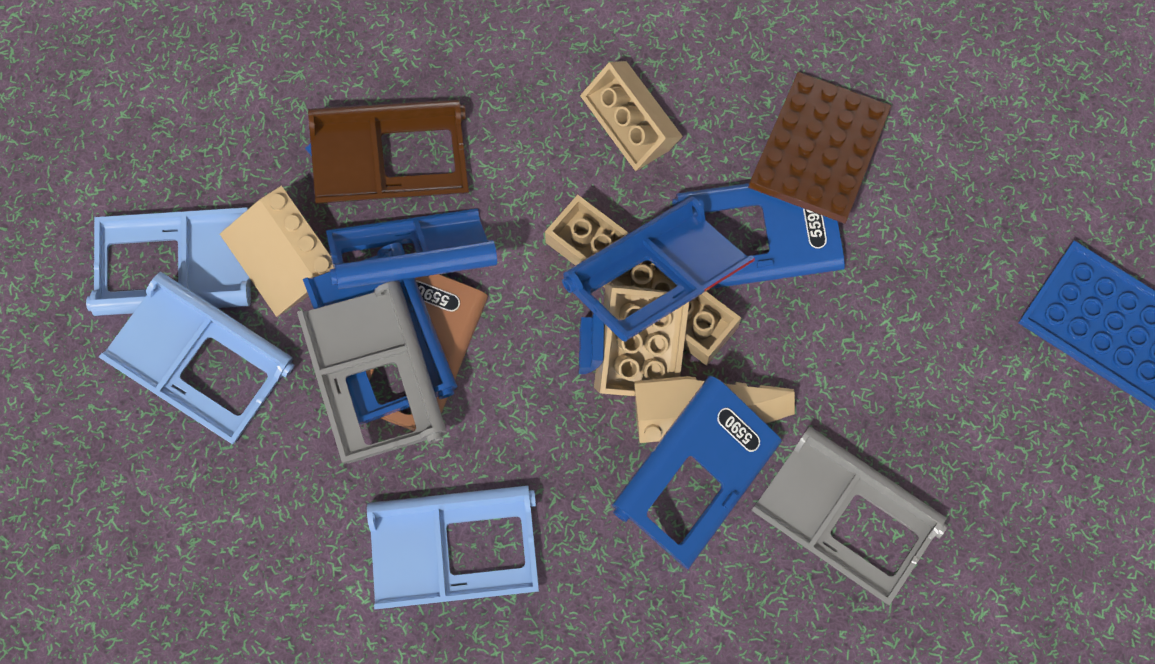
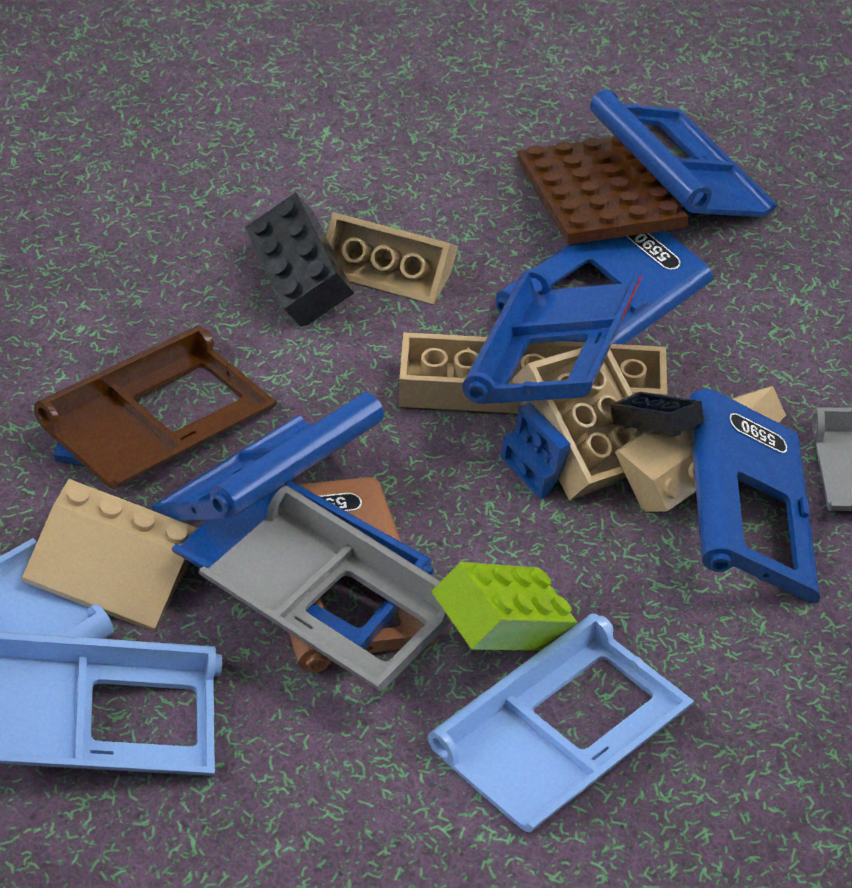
camera: 40 degrees left, 25 degrees down
(460, 456) = (503, 606): none -> lime brick
(563, 85) = (299, 260): none -> black brick
(674, 376) = (657, 413): none -> black piece
(890, 189) = (700, 184): none -> blue piece

